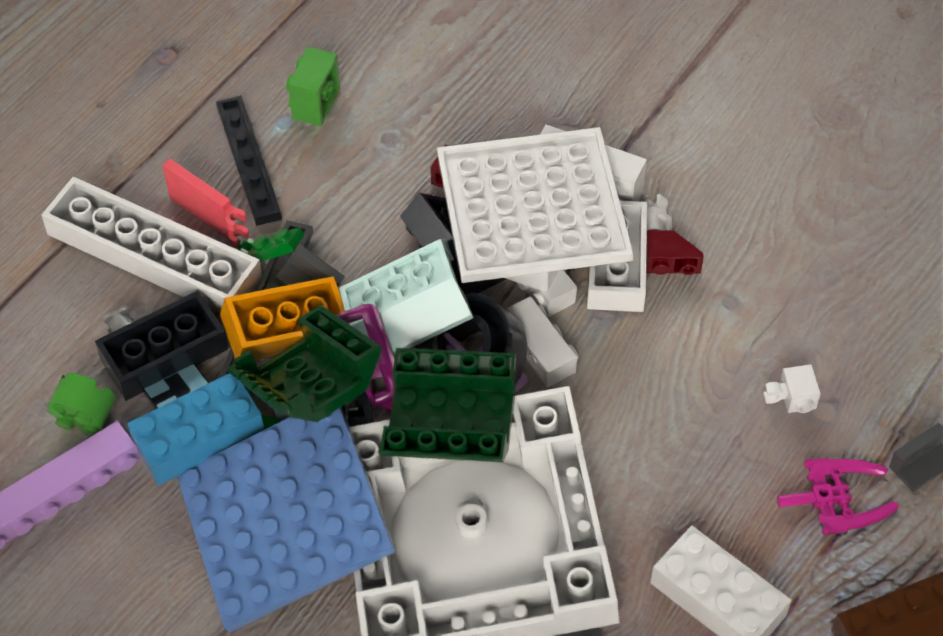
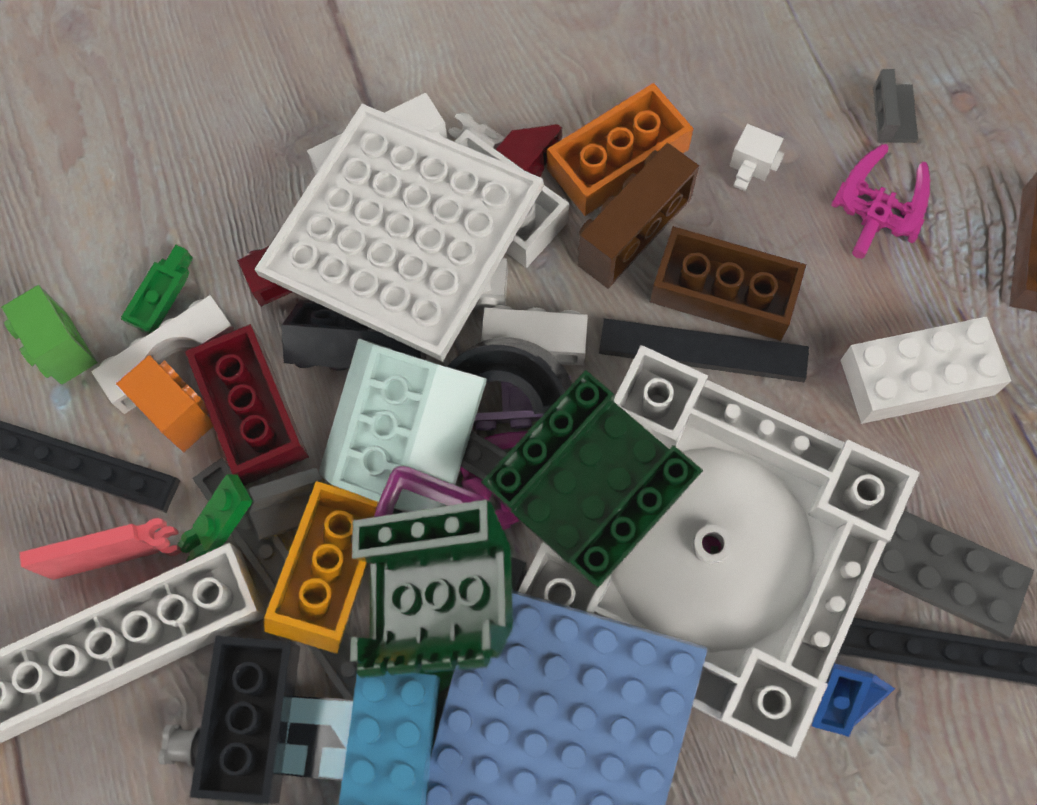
camera: 50 degrees left, 15 degrees up
(321, 173) = (167, 402): none -> orange brick
(325, 145) = (193, 327): none -> white arch
(356, 214) = (246, 405): none -> dark red brick
(393, 122) = (158, 291): none -> green hinge
(620, 452) = (707, 350): none -> black tile
(676, 428) = (728, 283): none -> reddish brown brick
(677, 341) = (636, 214): none -> reddish brown brick
(720, 302) = (613, 146): none -> orange brick

